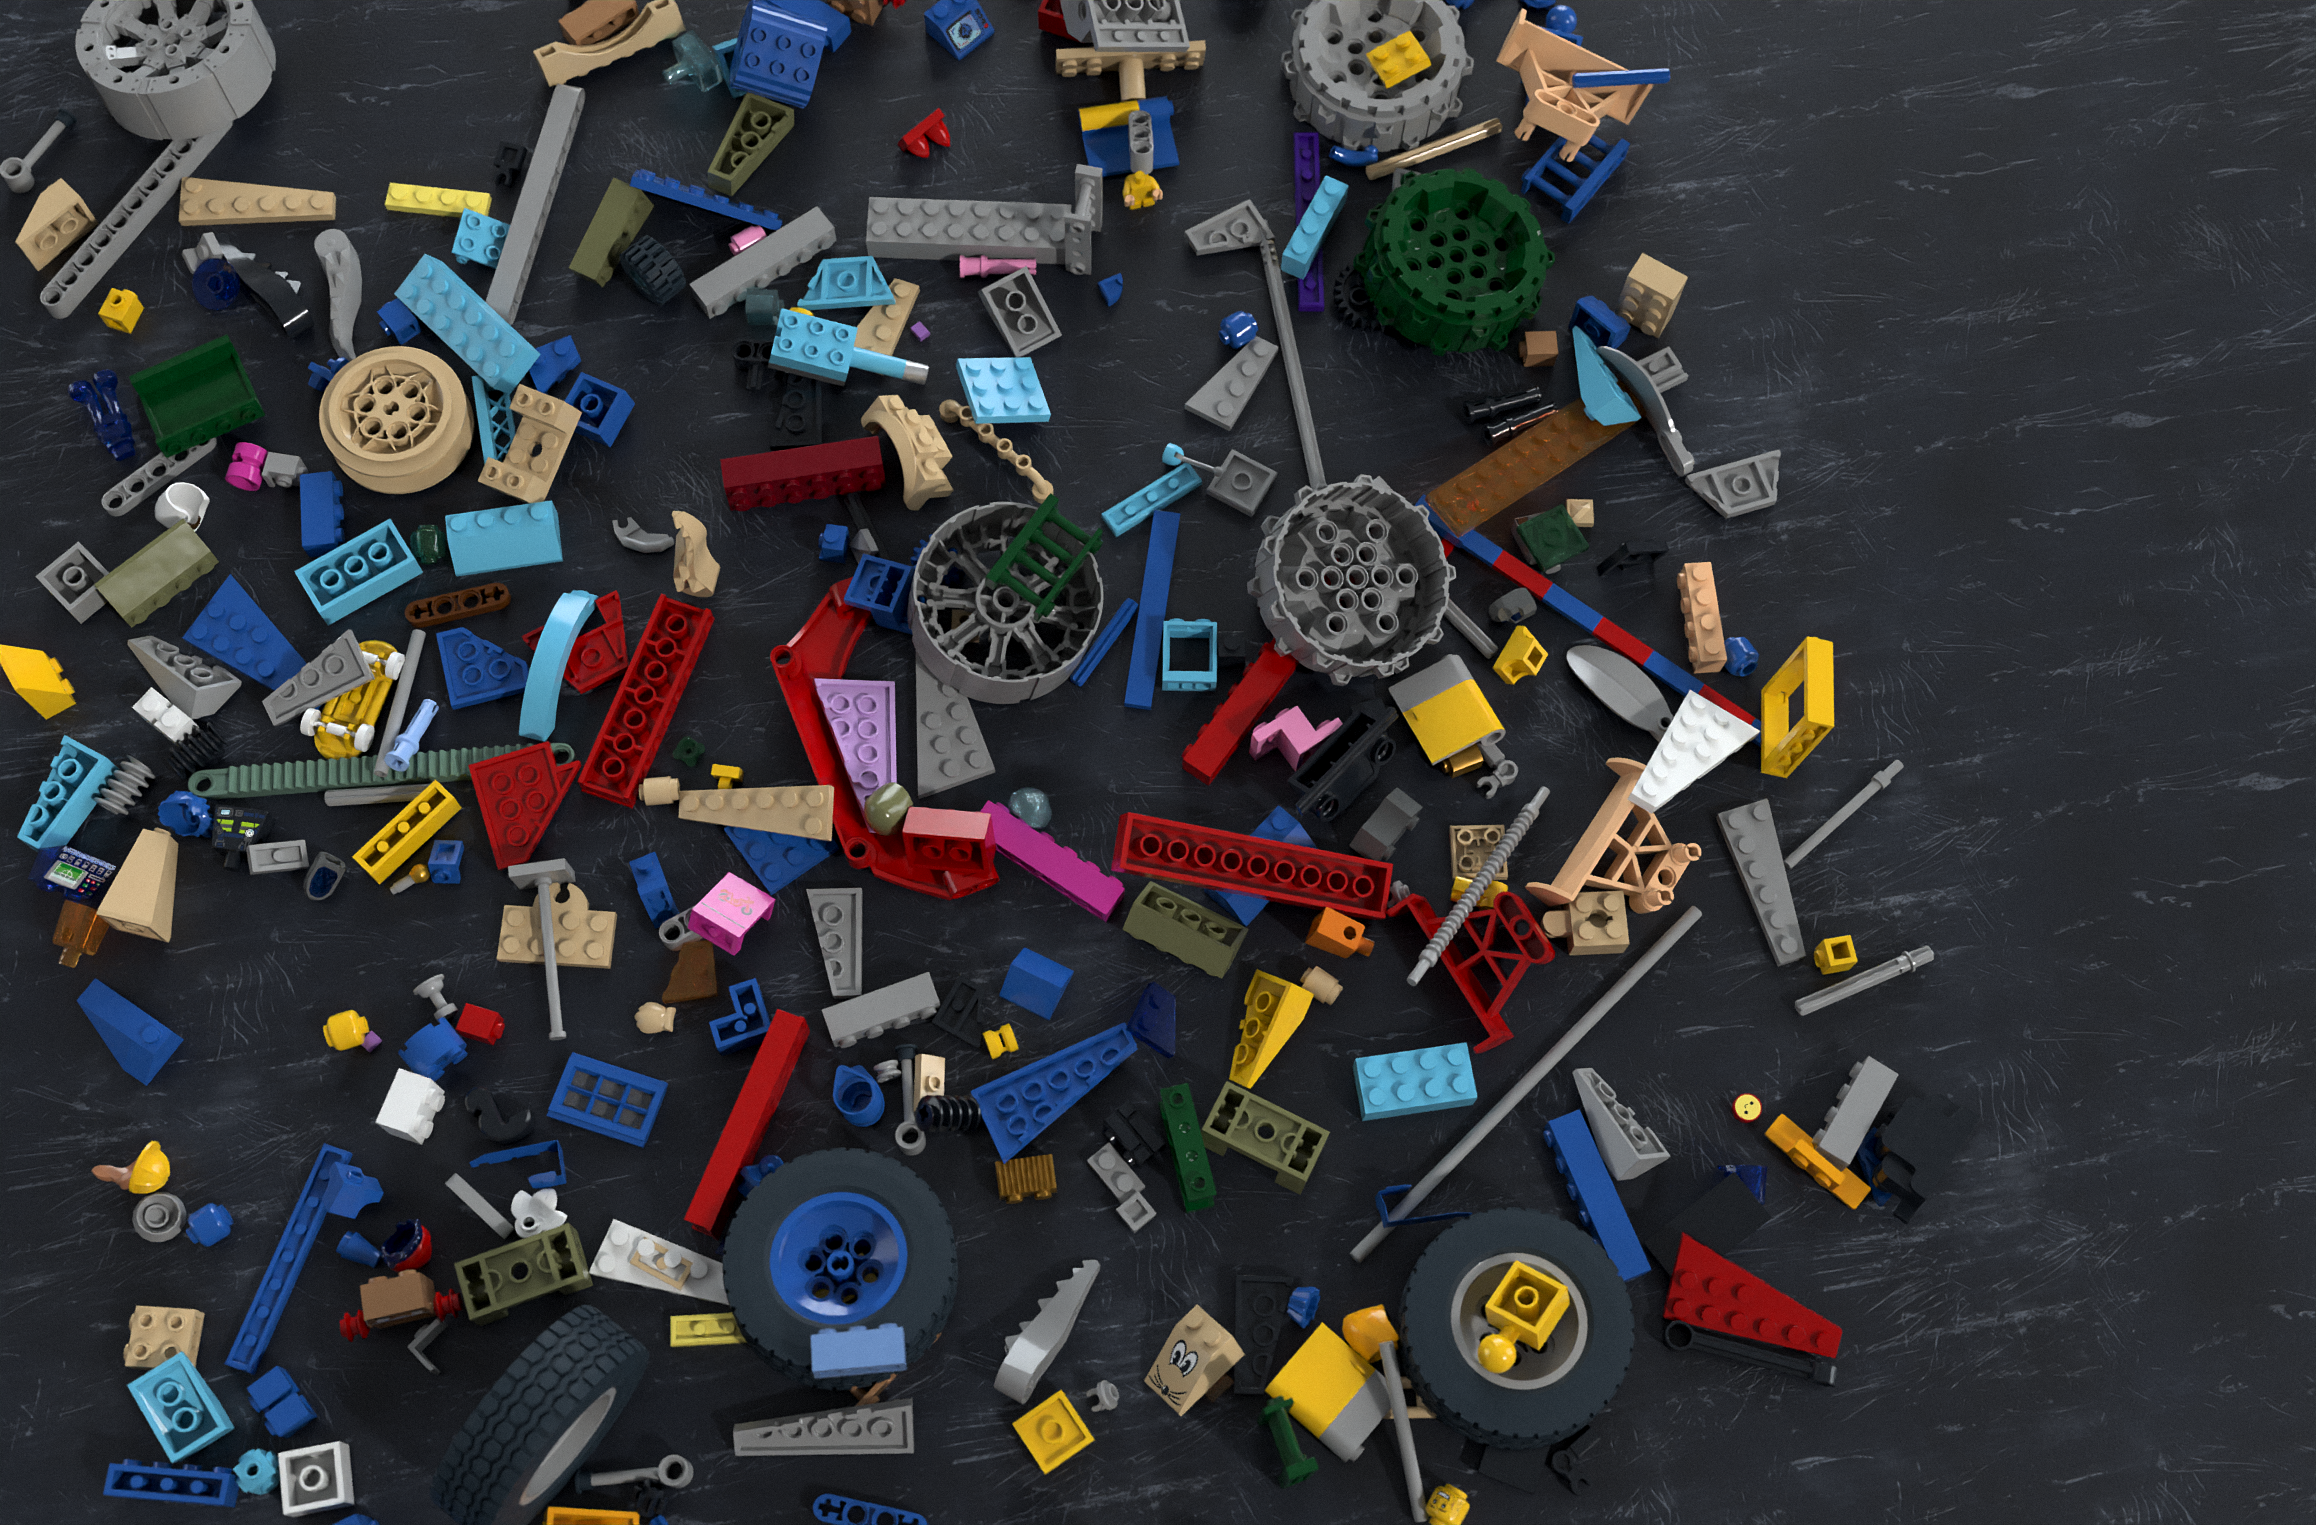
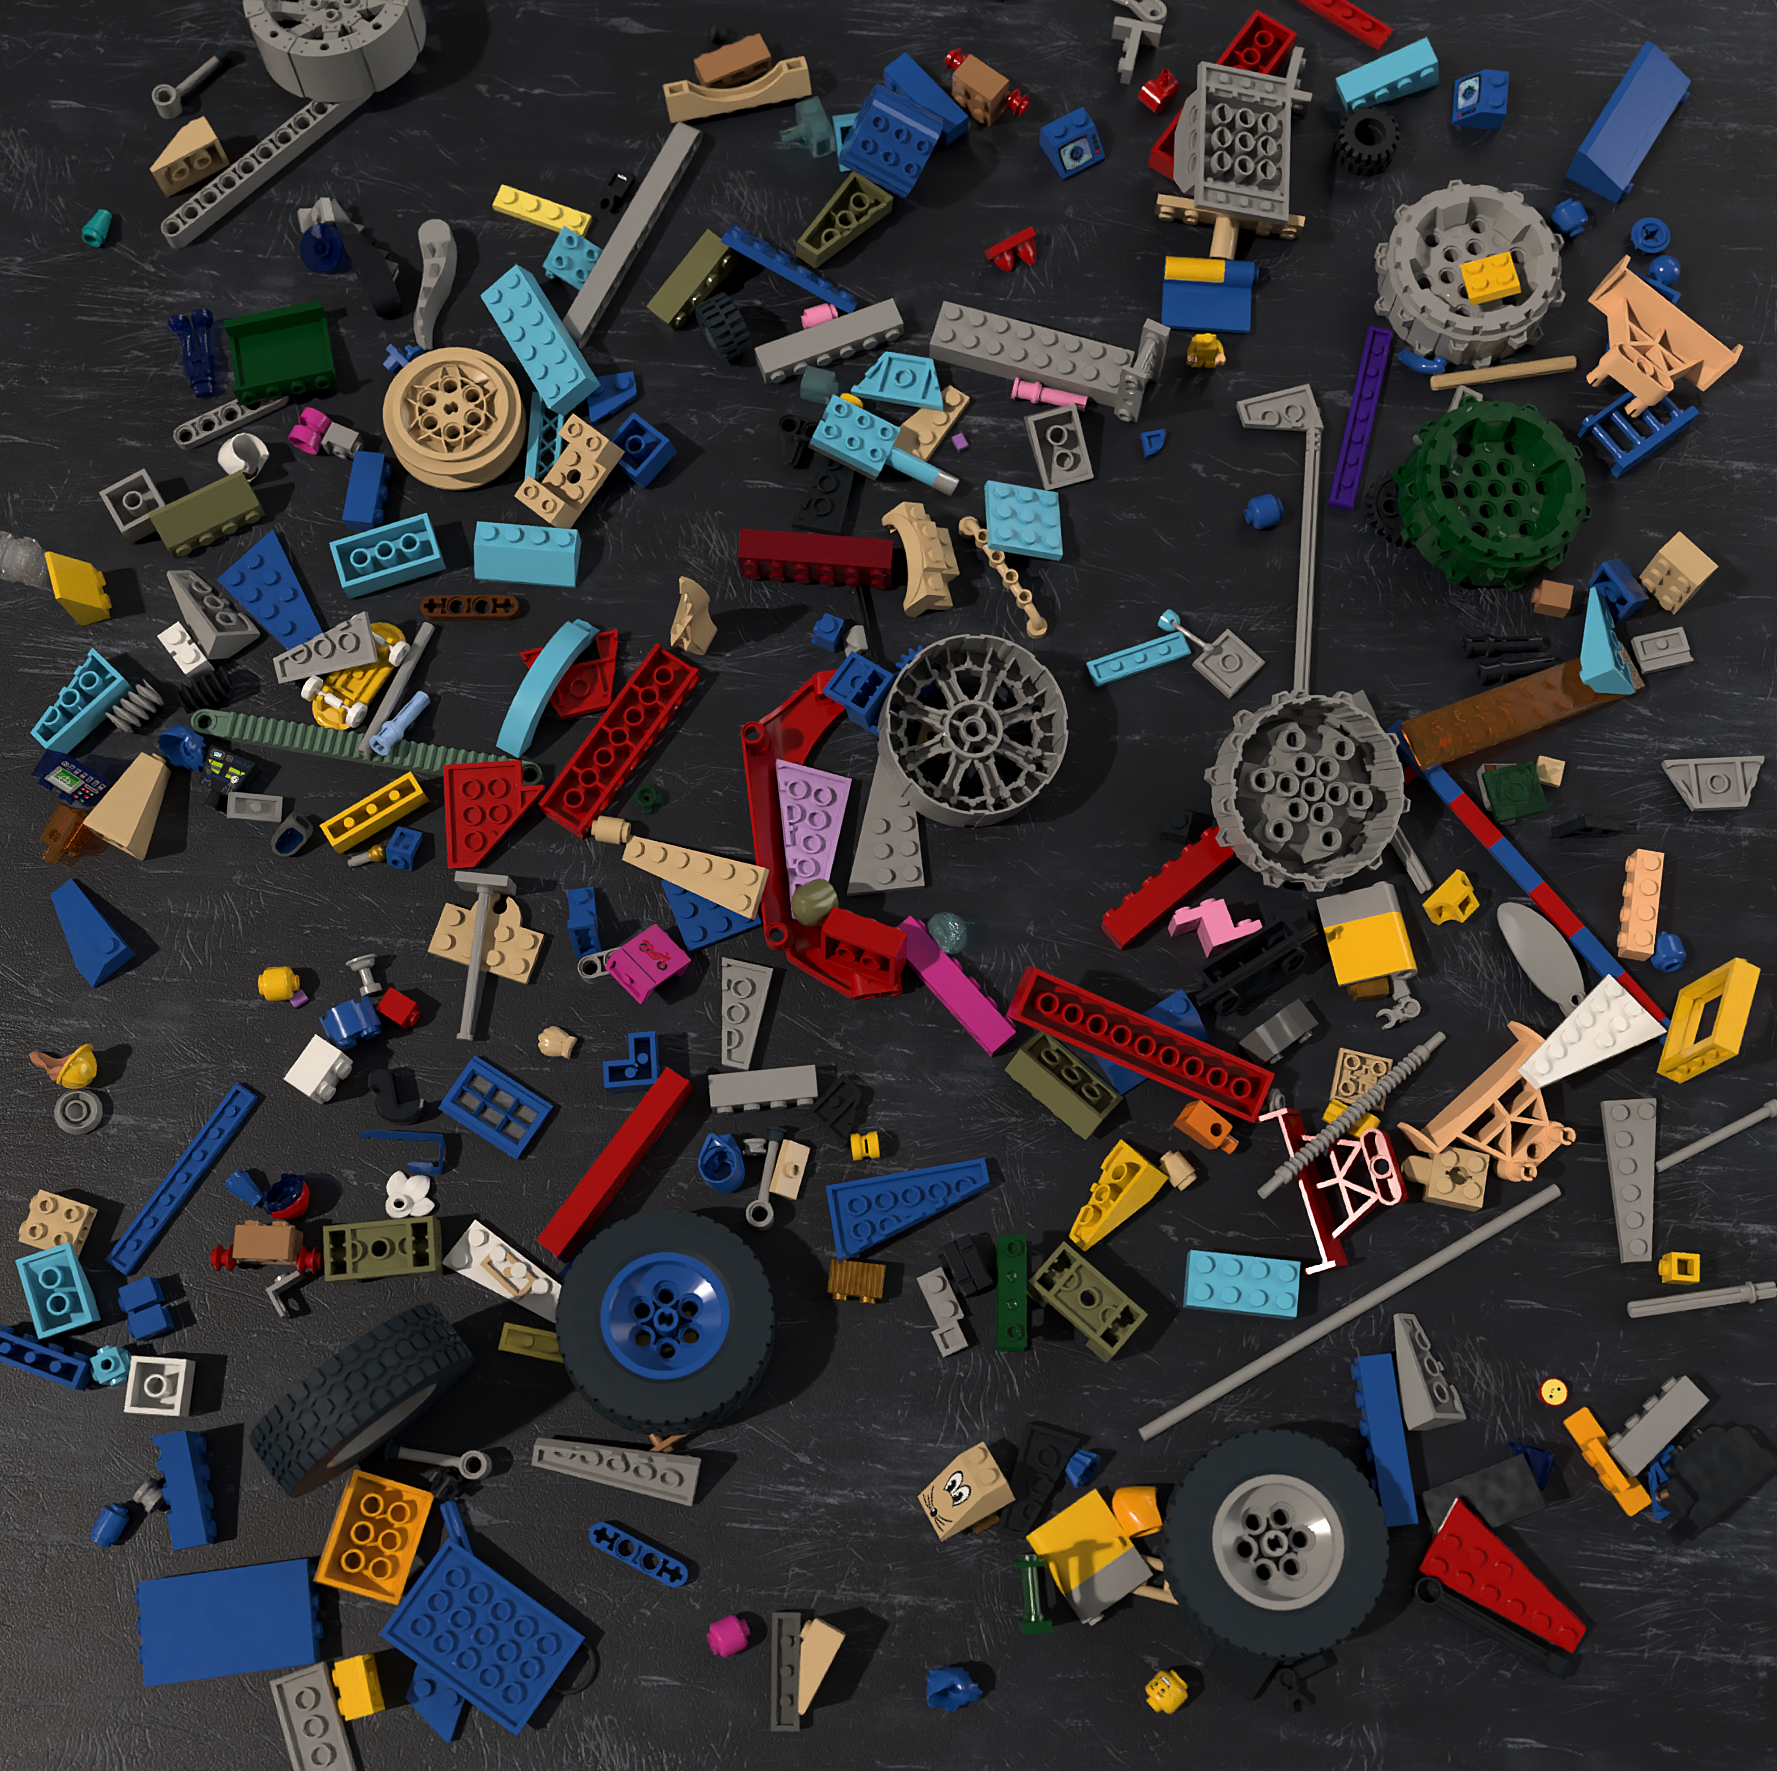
camera: 20 degrees right, 5 degrees up
(121, 310) = (231, 253): yellow brick -> none
(209, 1224) = (119, 1130): blue head -> none
(239, 203) = (358, 172): tan wing -> none
(350, 1190) = (248, 1132): blue brick -> none
(373, 794) = (354, 769): light grey axle -> none
(398, 321) = (478, 322): blue brick -> none
(428, 544) = (456, 543): clear green head -> none
(478, 669) = (474, 673): blue plate -> none
(480, 1205) = (359, 1176): light grey beam -> none
(637, 539) = (648, 584): light grey piece -> none
(693, 974) = (601, 1010): clear orange wing -> none
(727, 775) = (675, 831): yellow tile -> none
(755, 1173) = (613, 1213): blue hips -> none
(858, 1351) = (660, 1409): medium blue brick -> none
(947, 1113) = (799, 1202): black piece -> none
(1033, 534) = (994, 691): dark green fence -> none
(1035, 983) = (911, 1099): blue slope -> none
(1042, 1338) = (835, 1432): light grey animal -> none
(1053, 1432) = (822, 1522): yellow plate -> none
(1104, 642) = (1057, 788): blue axle -> none
(1107, 1394) = (880, 1501): light grey plate -> none
(1140, 142) = (1217, 304): light grey beam -> none
(1152, 610) = (1111, 767): blue tile -> none
(1155, 1019) = (1013, 1162): clear blue wing -> none
(1189, 679) = (1129, 845): medium azure window -> none
(1231, 388) = (1244, 566): light grey wing -> none
(1314, 227) = (1364, 427): medium azure brick -> none
(1403, 1430) = (1144, 1611): light grey piece -> none
(1404, 1188) = (1178, 1394): blue piece -> none
(1513, 607) = (1458, 849): dark grey rock -> none
(1523, 1309) = (1286, 1548): yellow brick -> none
(1620, 78) = (1707, 346): blue axle -> none
(1657, 413) = (1651, 690): light grey plant -> none

